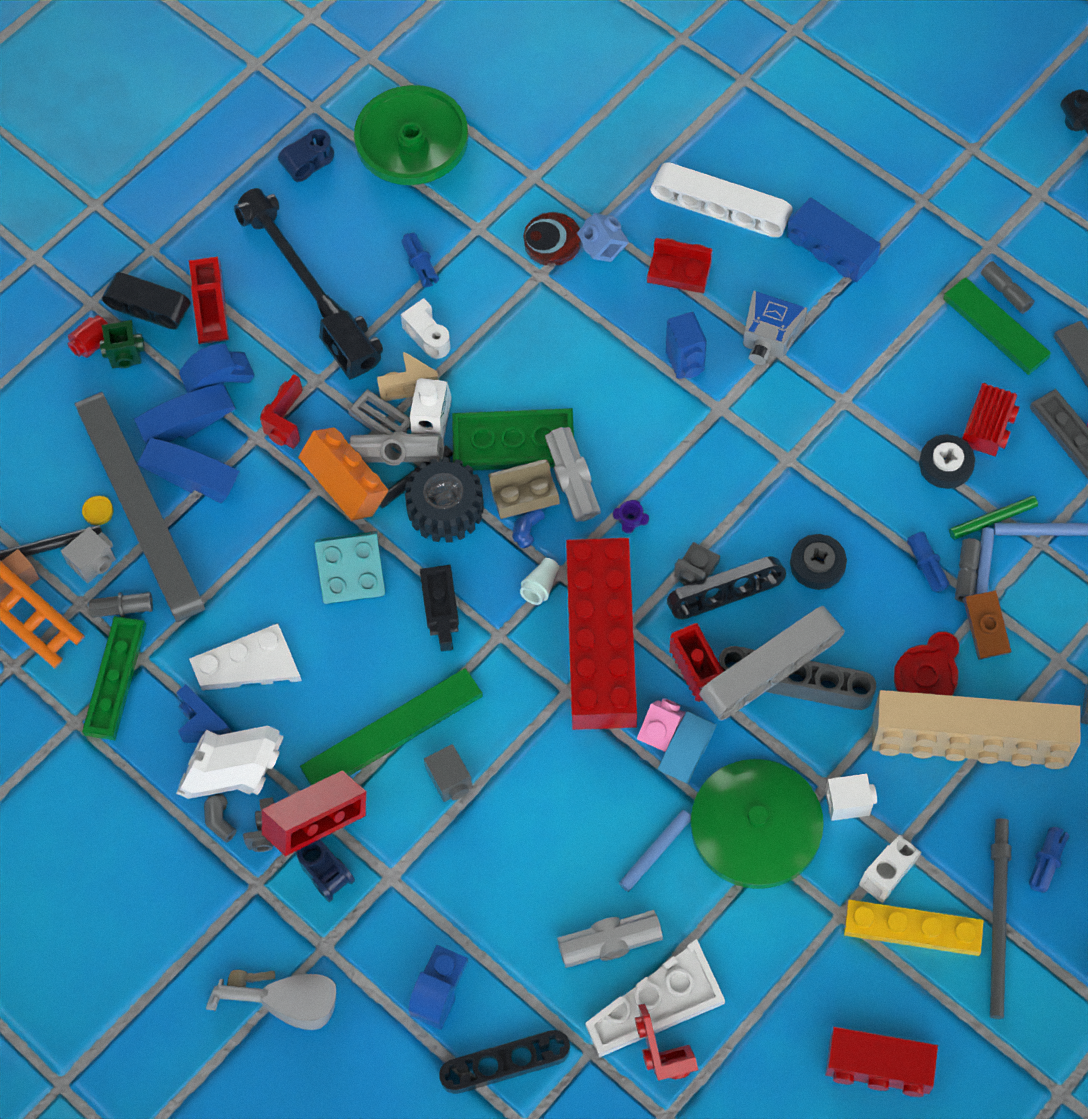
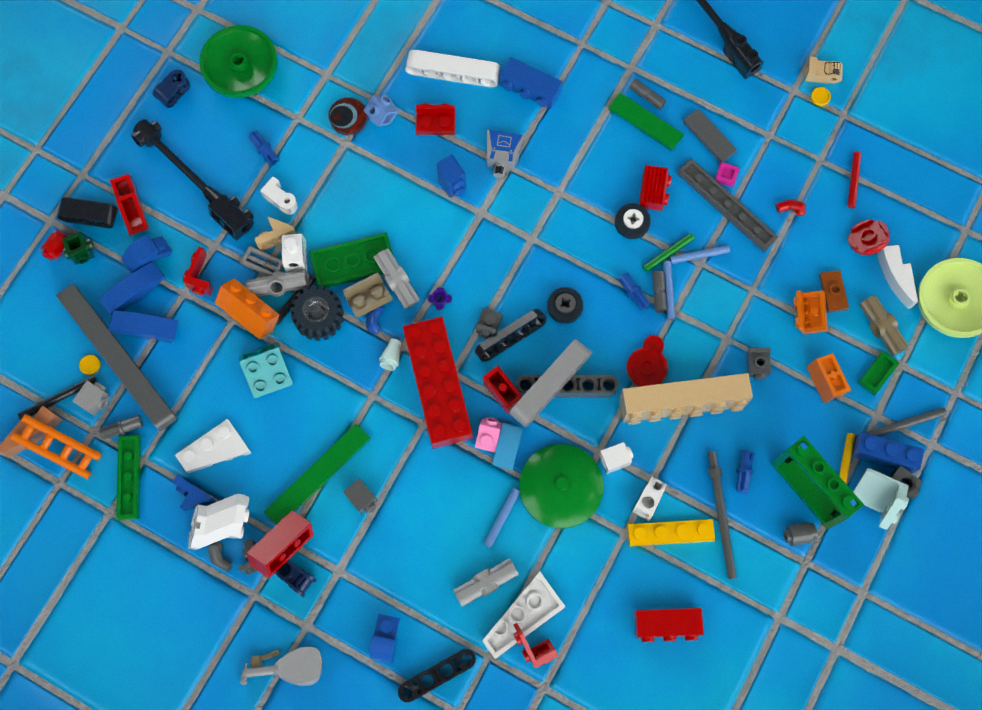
camera: 15 degrees left, 10 degrees up
(440, 603) = (330, 383): black hinge -> none
(987, 625) = (678, 326): dark orange plate -> none

